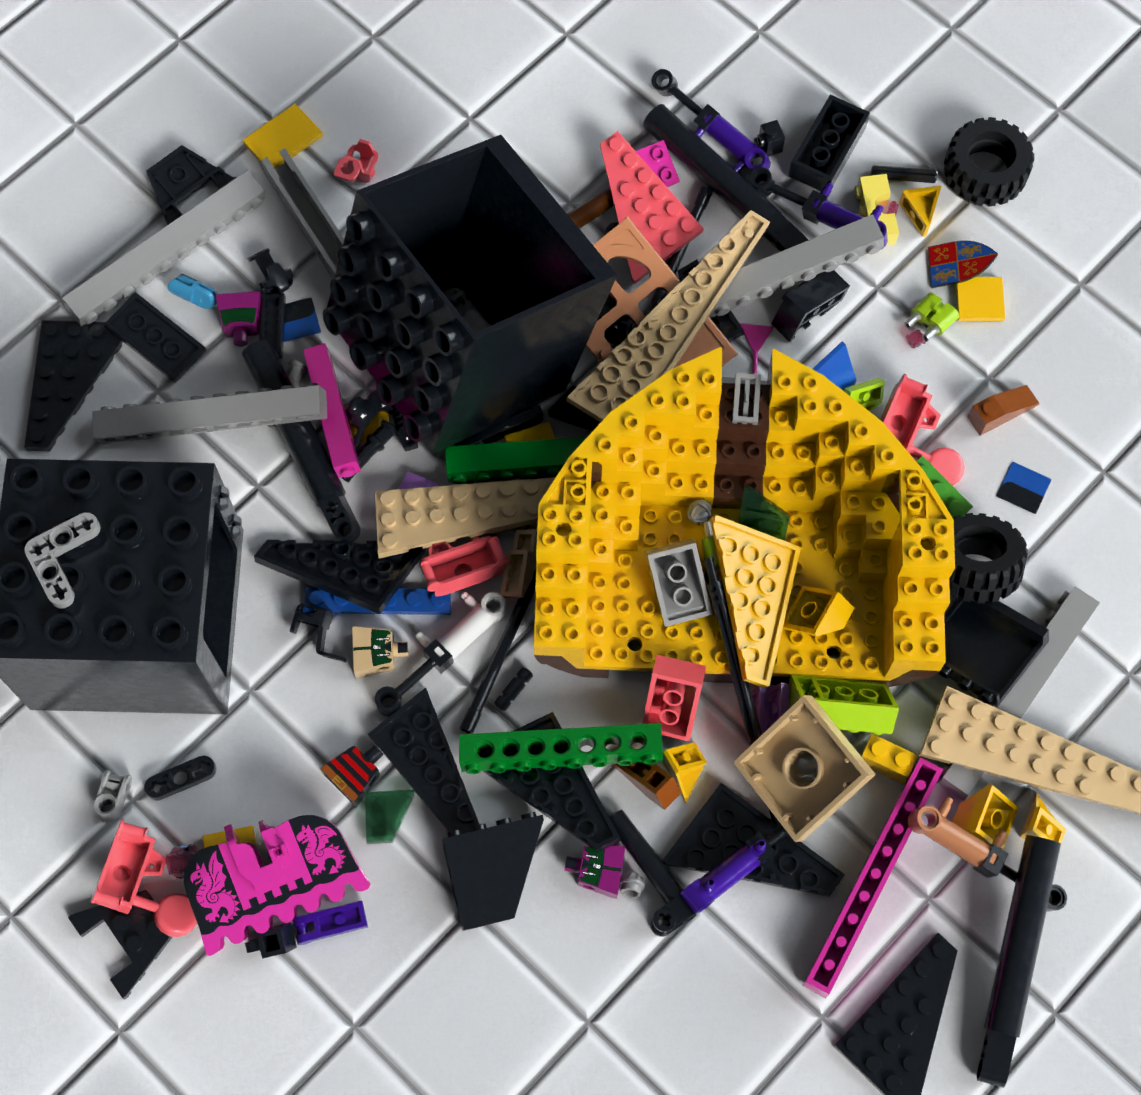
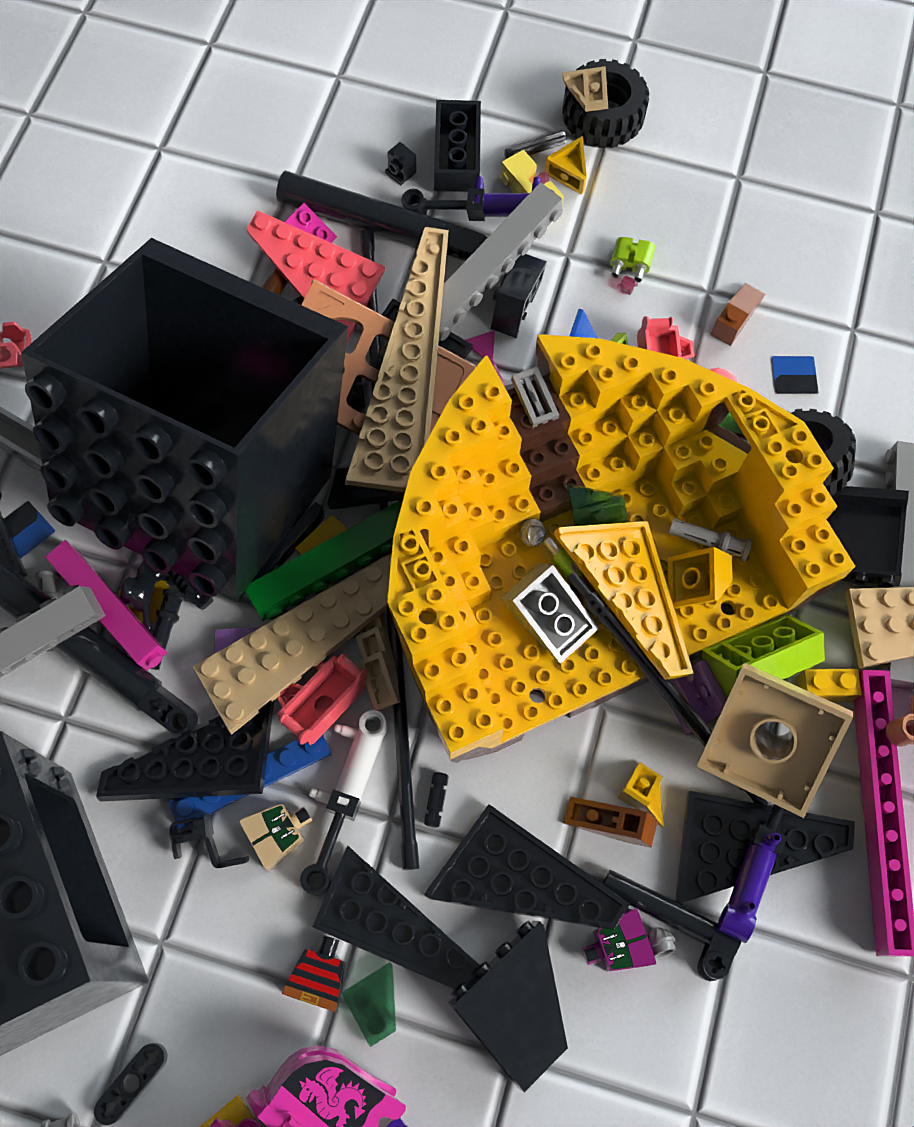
camera: 30 degrees left, 0 degrees up
(549, 740) = (601, 781): green brick -> none
(674, 696) = (604, 730): coral brick -> none
(713, 124) = (339, 171): dark purple piece -> none
(855, 594) = (723, 542): none -> light grey pin
(958, 261) = (627, 200): shield -> none
(973, 143) = (588, 87): none -> tan wing
(980, 299) = (663, 225): yellow tile -> none

